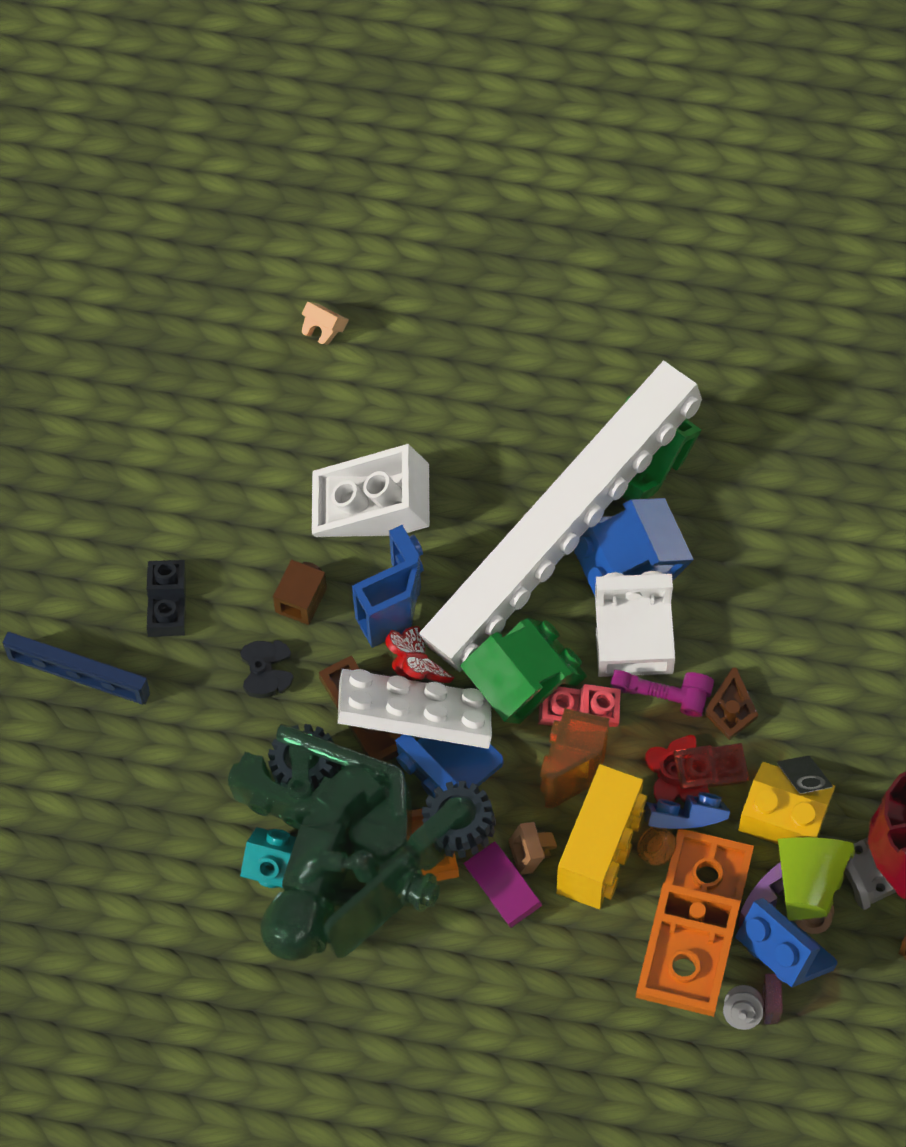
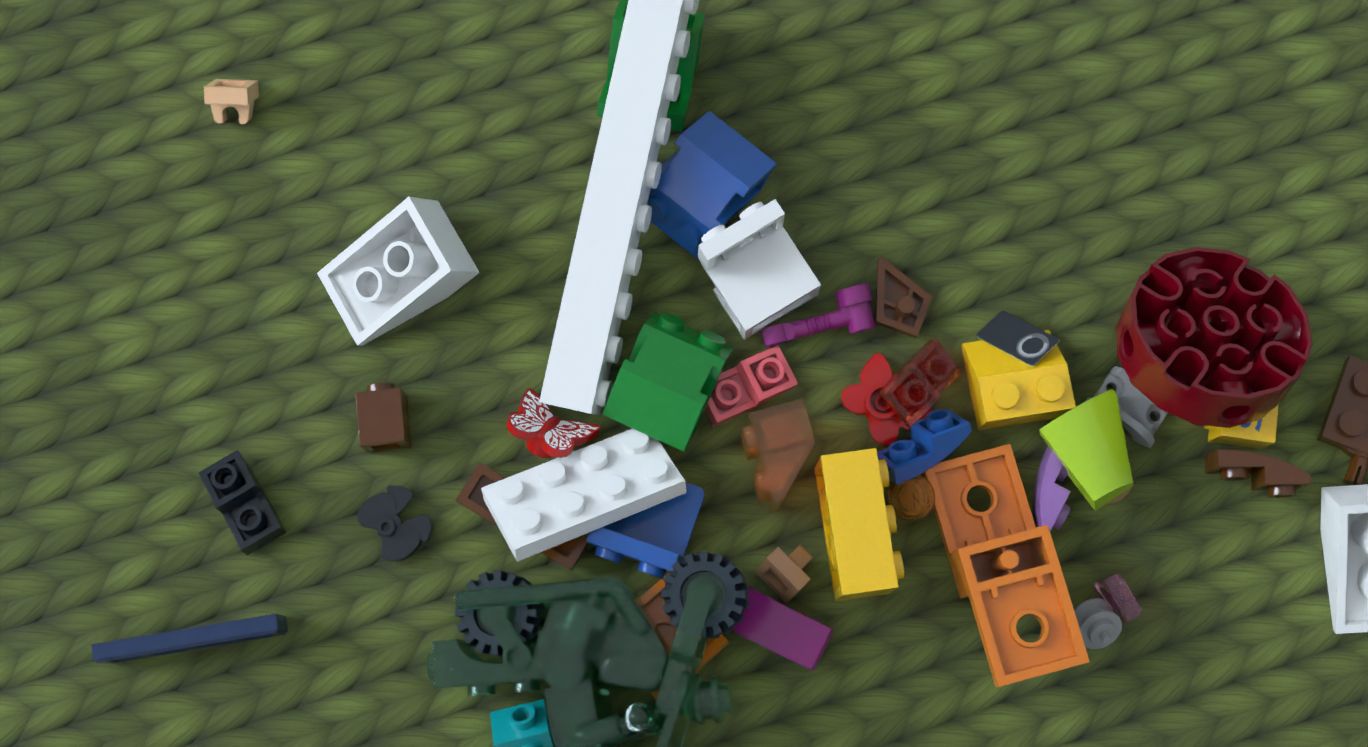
camera: 30 degrees left, 15 degrees up
(391, 596) = (479, 324): blue piece -> none
(783, 945) = (1110, 542): blue bracket -> none

